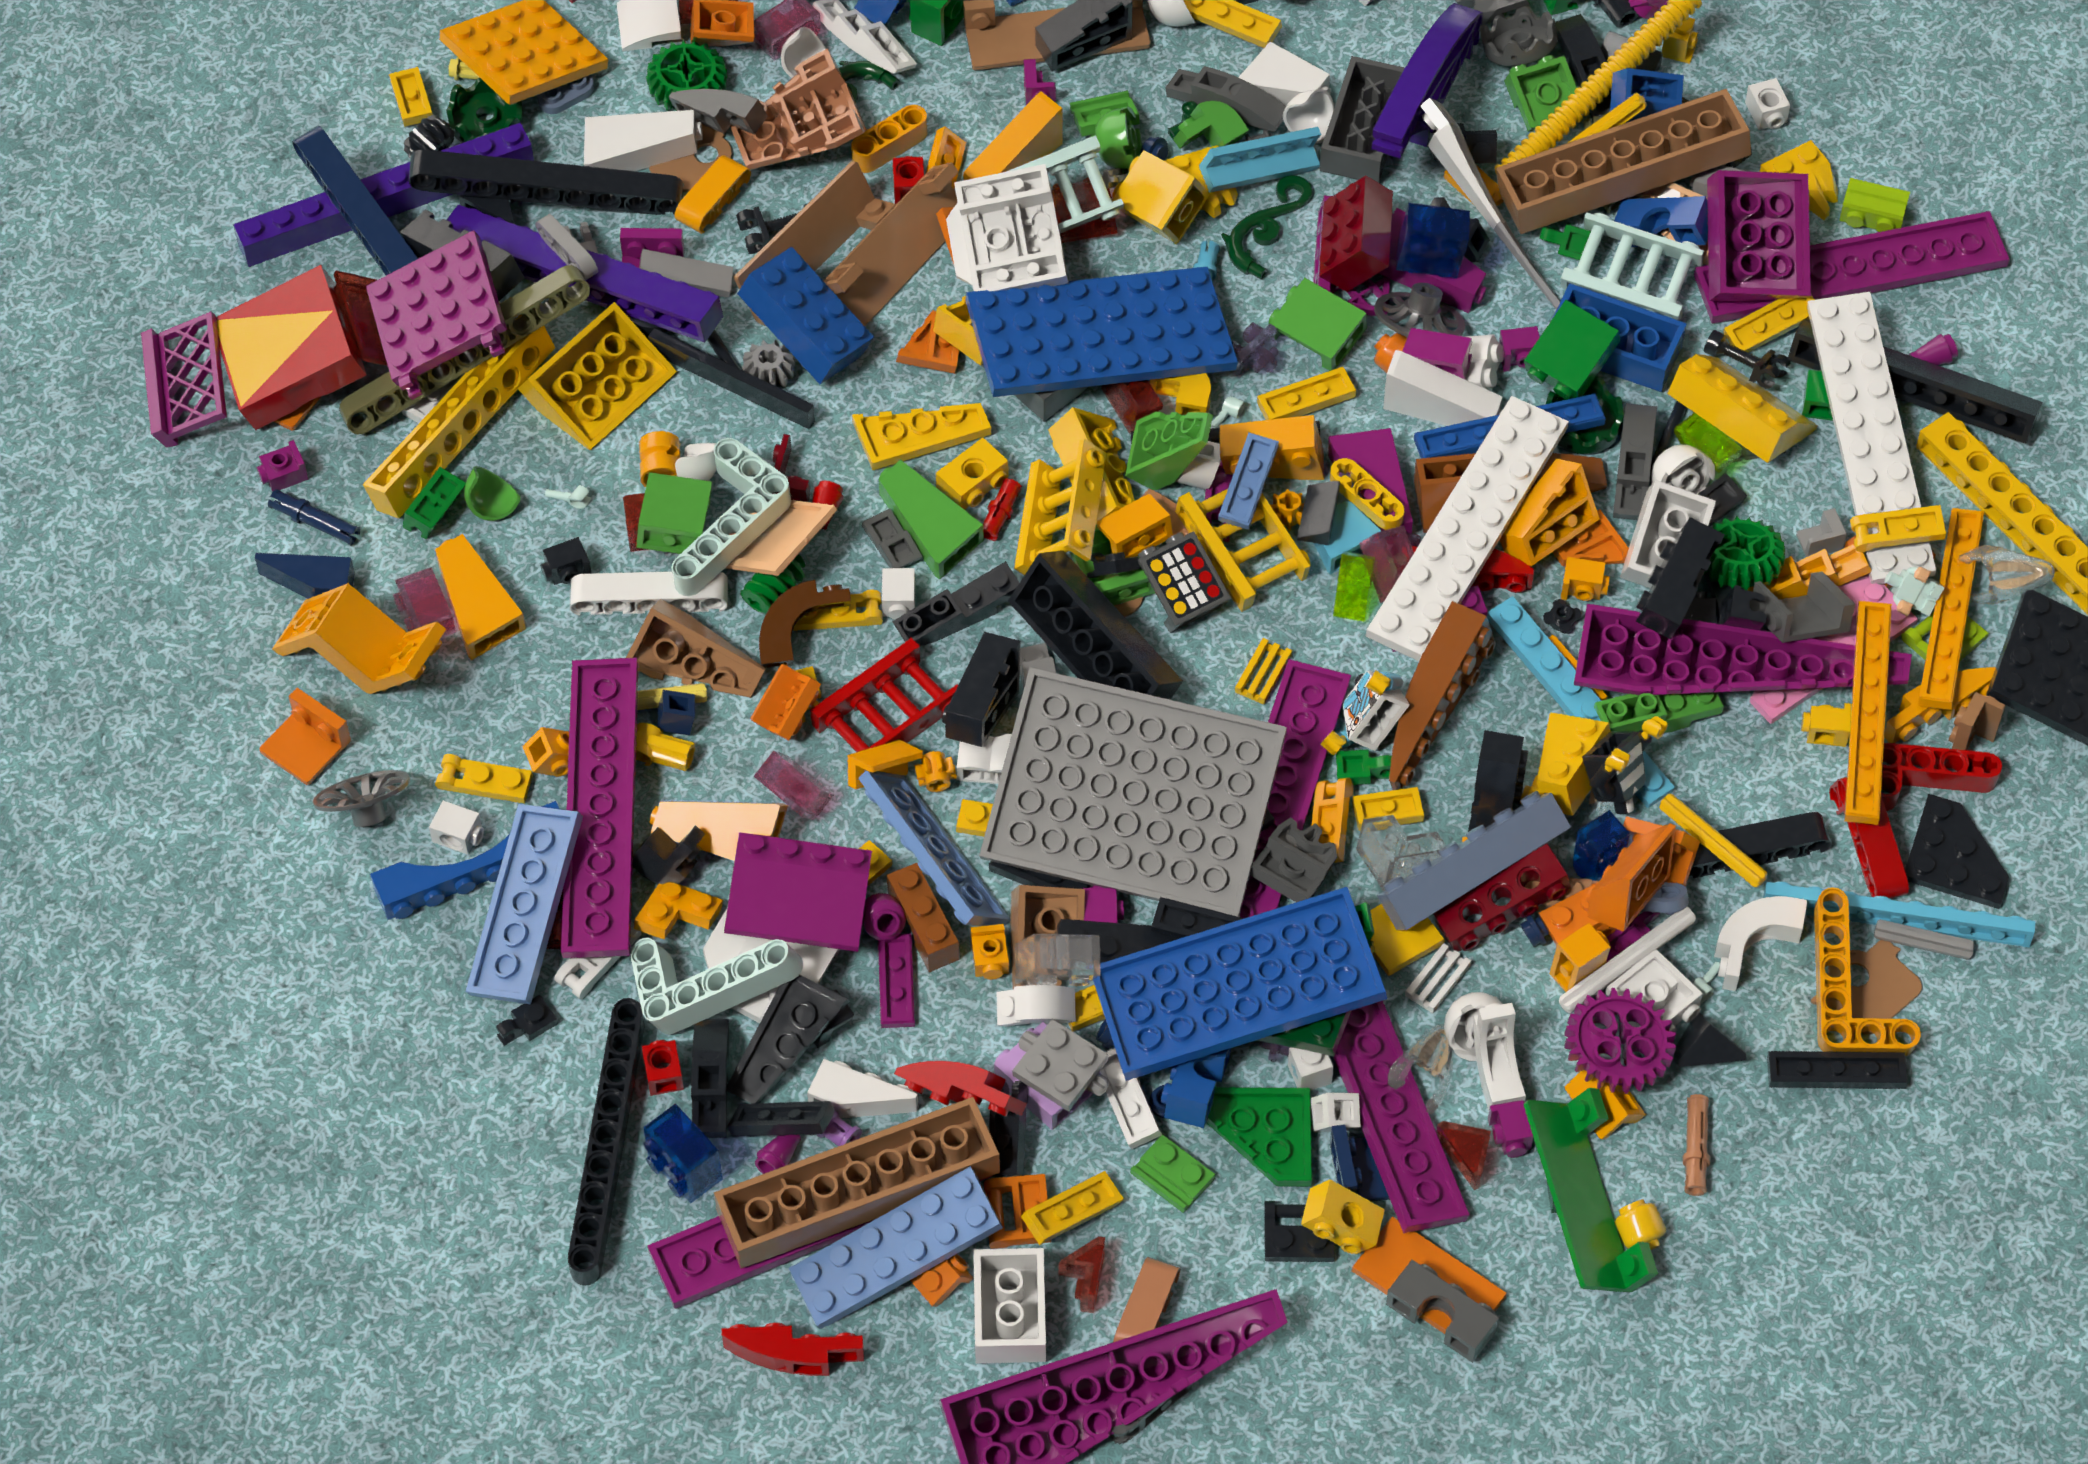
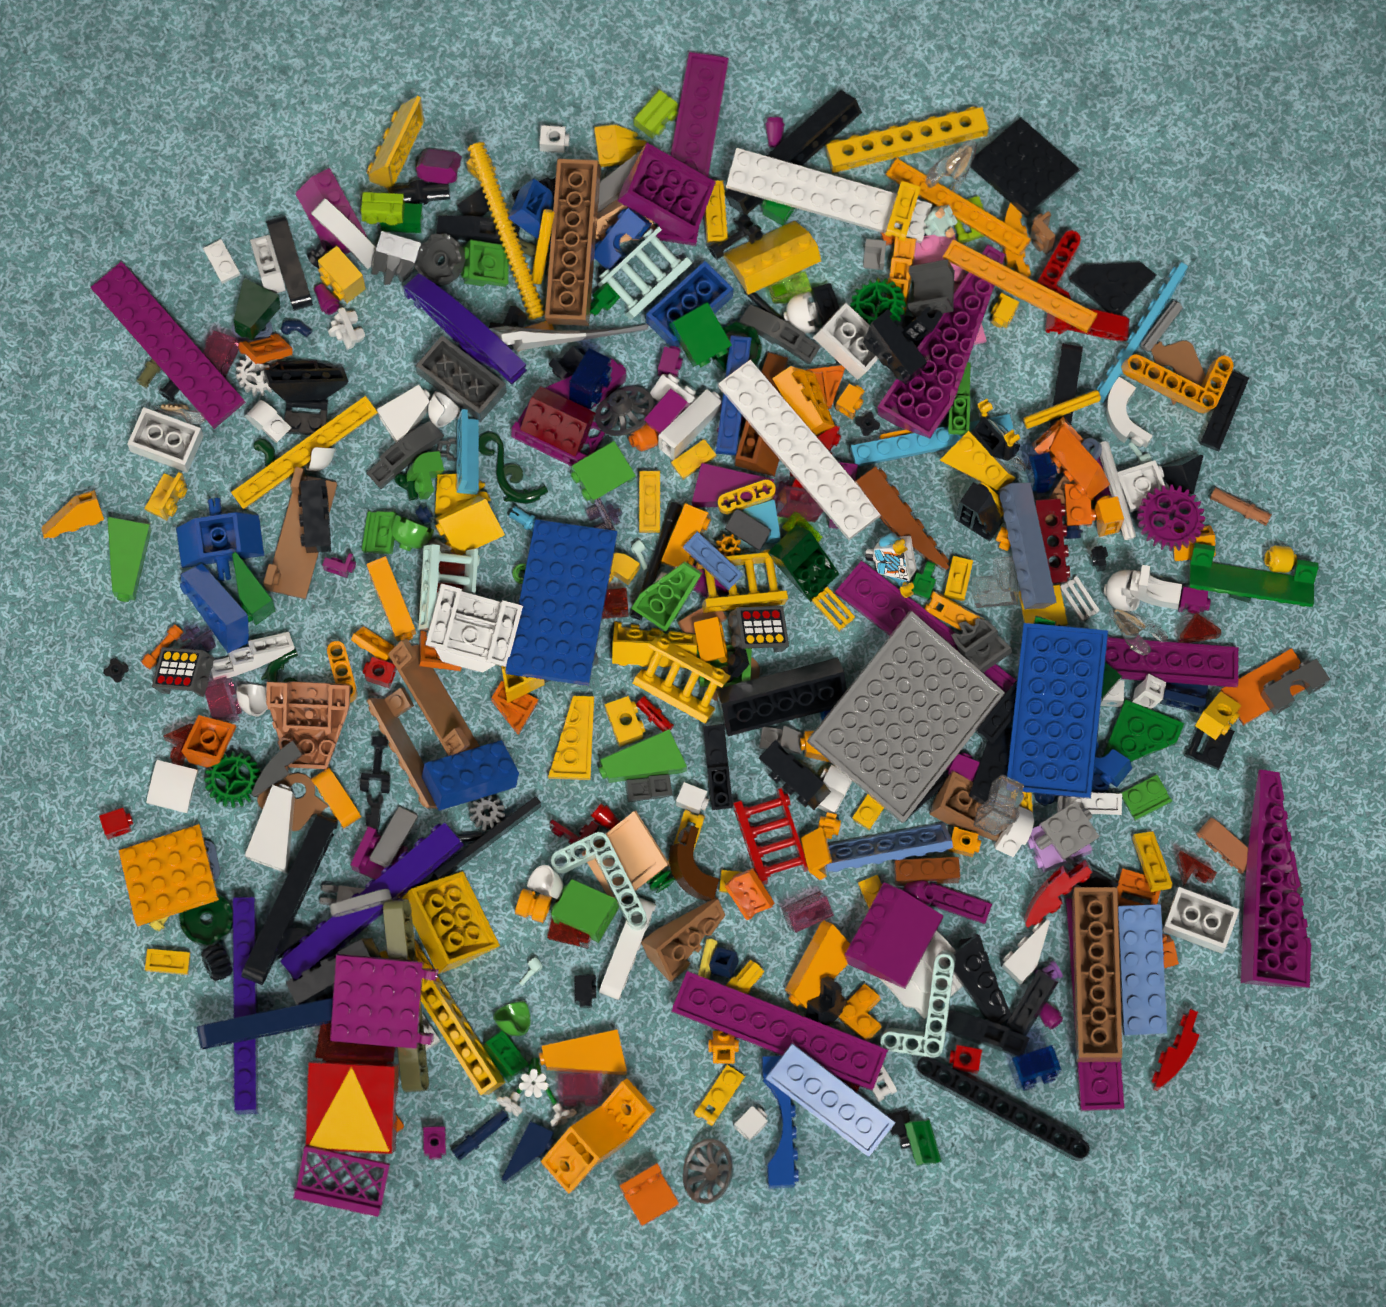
camera: 70 degrees left, 15 degrees up
(390, 524) = (533, 1082): none -> white plant
(512, 1052) = (923, 1142): none -> green plate
(707, 243) = (373, 819): none -> black plate
(1308, 602) = (804, 562): none -> dark green slope
(1401, 425) = (692, 459): none -> yellow plate
(1512, 975) = (1098, 558): none -> black plate

